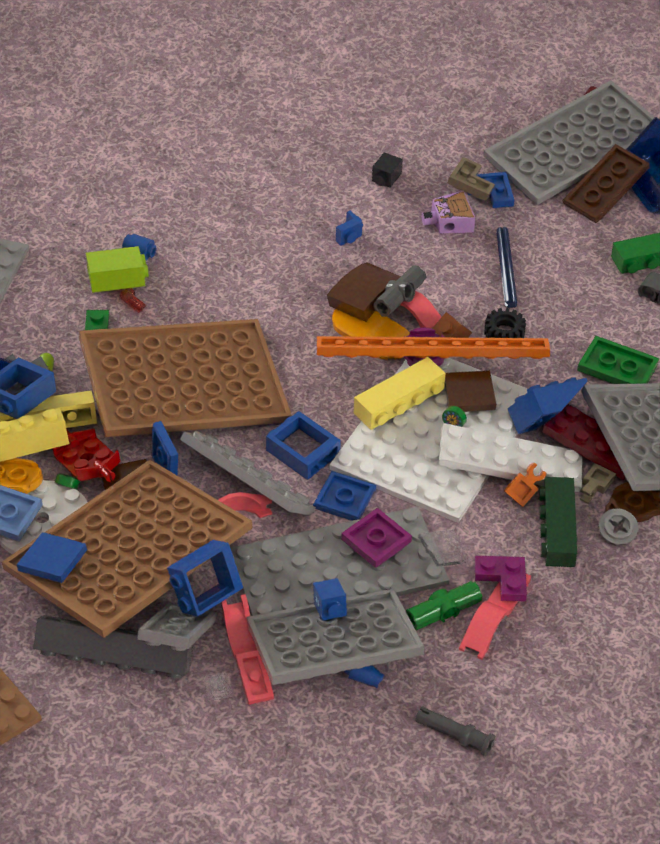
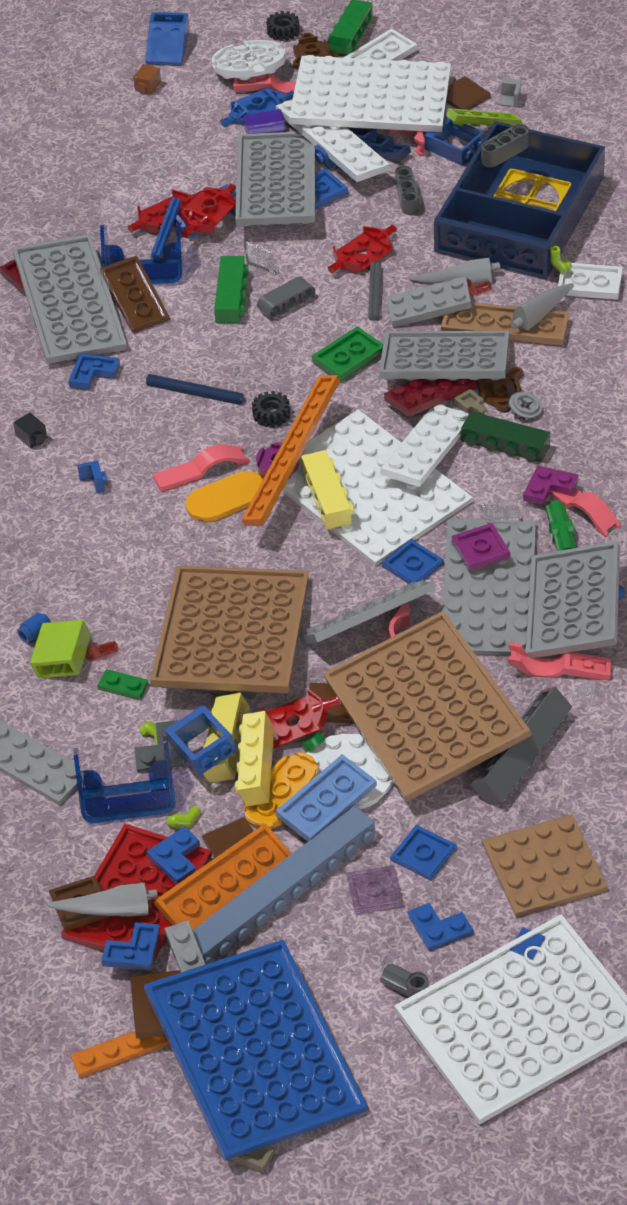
camera: 65 degrees left, 0 degrees up
(52, 557) = (422, 754): blue tile -> none
(163, 449) = (319, 658): blue tile -> none
(175, 628) = (535, 689): light grey plate -> none
(225, 571) = (493, 655): blue window -> none
(314, 461) = (369, 578): blue window -> none
(330, 599) = (539, 589): blue brick -> none
(360, 290) = (184, 483): reddish brown slope -> none
(400, 290) = (206, 455): dark grey piece -> none
(451, 214) = (114, 403): torso -> none
(451, 327) = (262, 438): dark orange brick -> none
(454, 416) = (370, 463): tile -> none
(466, 179) = (85, 377): dark tan plate -> none
(470, 390) = (343, 446): reddish brown tile -> none
(522, 487) = (461, 445): orange plate -> none
(543, 403) = (386, 402): blue slope -> none

